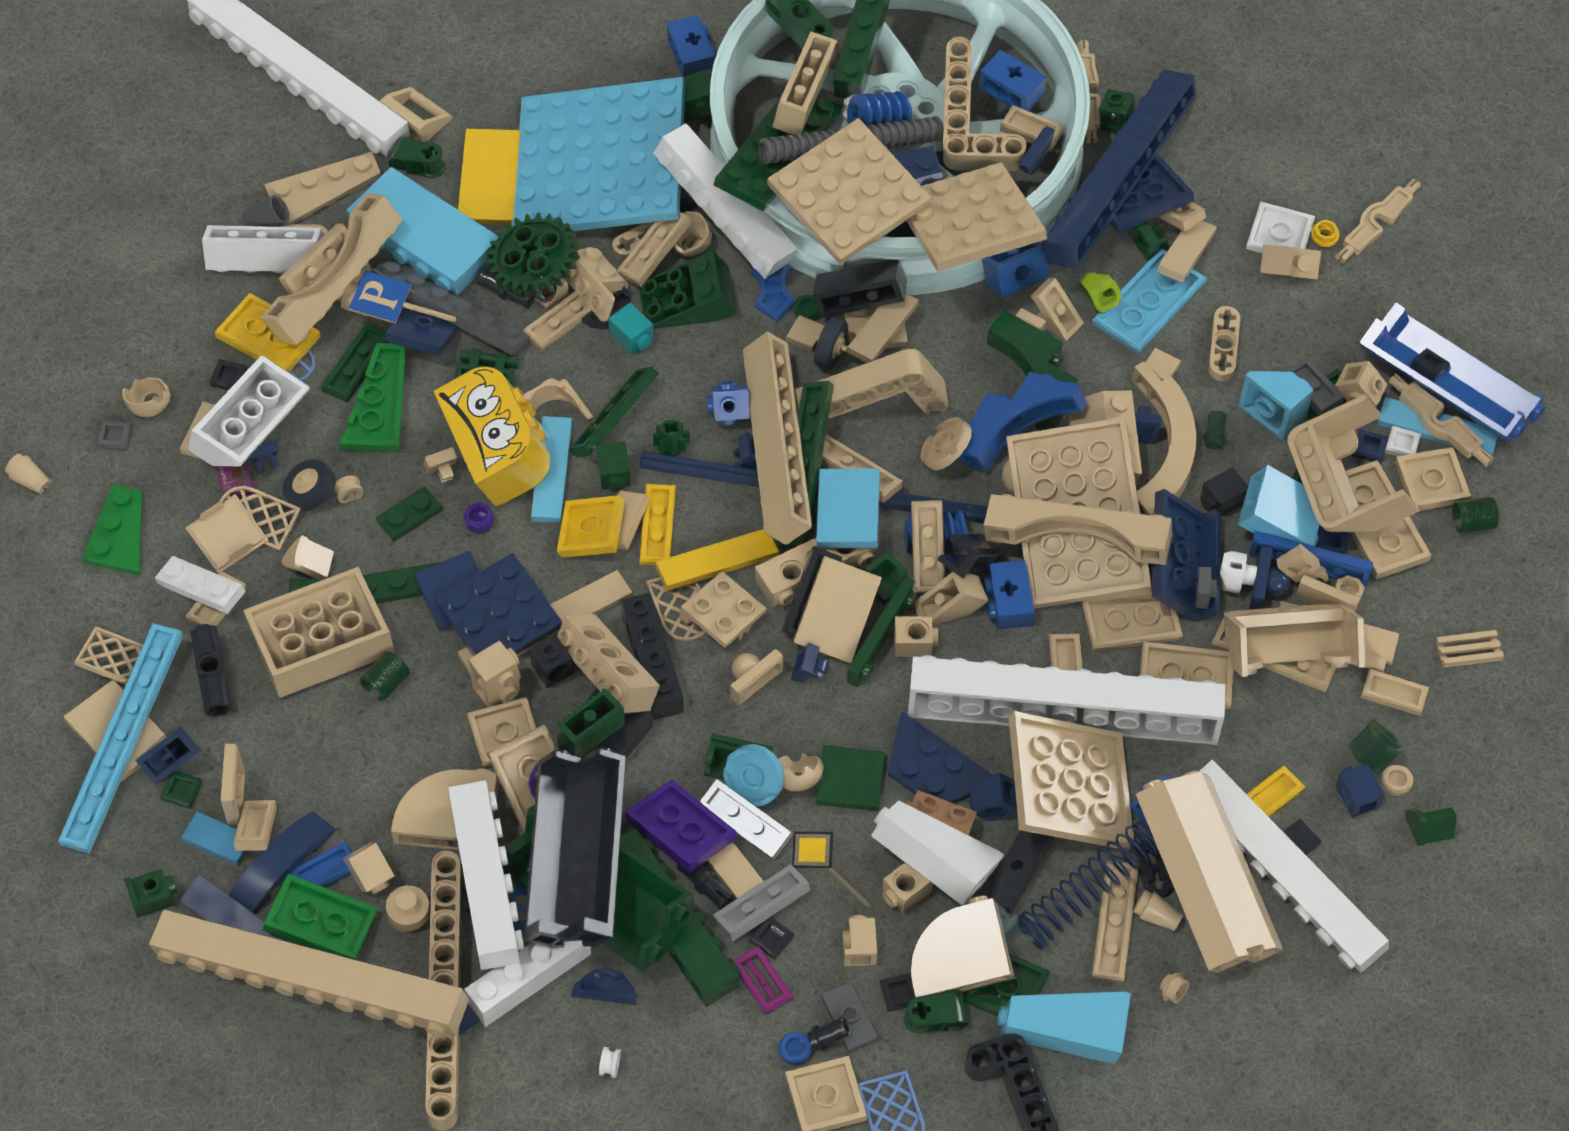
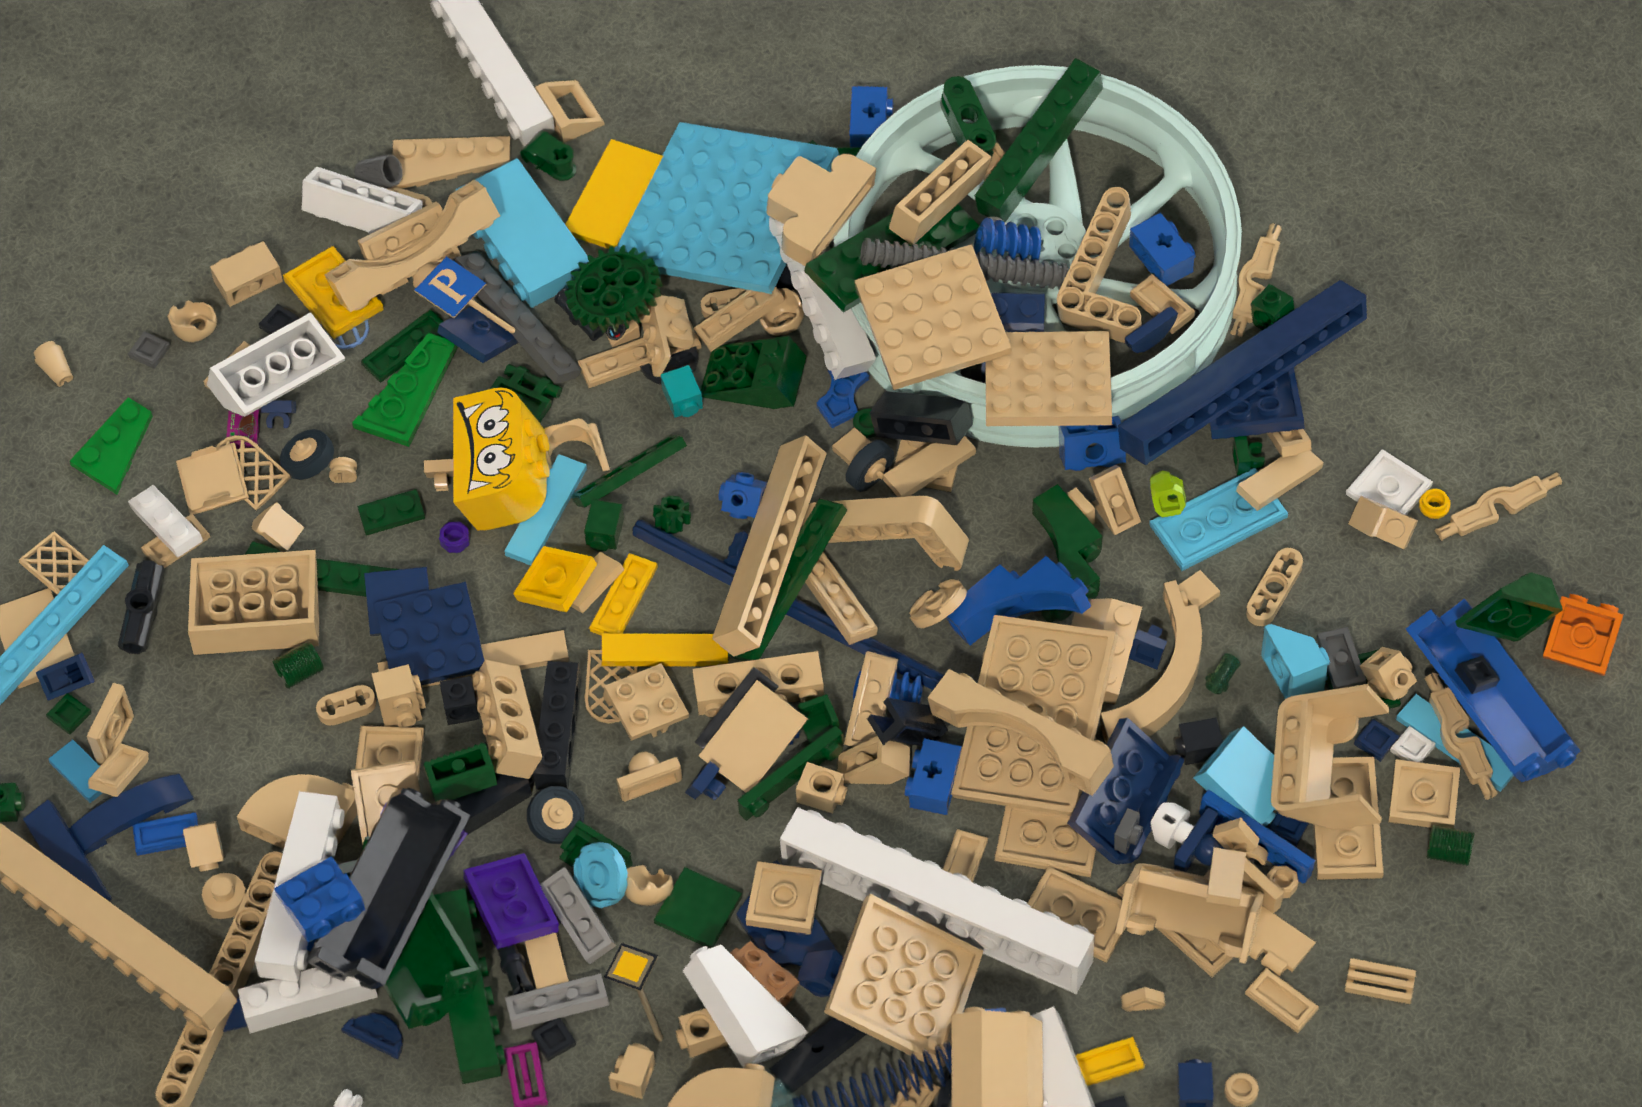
camera: 25 degrees right, 0 degrees up
(179, 340) = (246, 273): none -> tan brick
(319, 918) = (138, 879): green plate -> none
(448, 704) = (346, 705): none -> tan beam
(517, 878) = (320, 899): none -> blue plate
(685, 735) = (554, 814): none -> black wheel
(698, 123) = (817, 202): none -> tan brick
(848, 508) = (807, 639): medium azure tile -> none
(929, 742) = (783, 897): none -> tan plate
(1279, 730) = (1143, 1000): none -> tan tile
(1310, 599) = (1226, 877): none -> tan tile
(1375, 747) = (1233, 1049): clear green panel -> none
(1442, 298) = (1514, 609): none -> dark green slope
(1501, 305) = (1583, 634): none -> orange plate

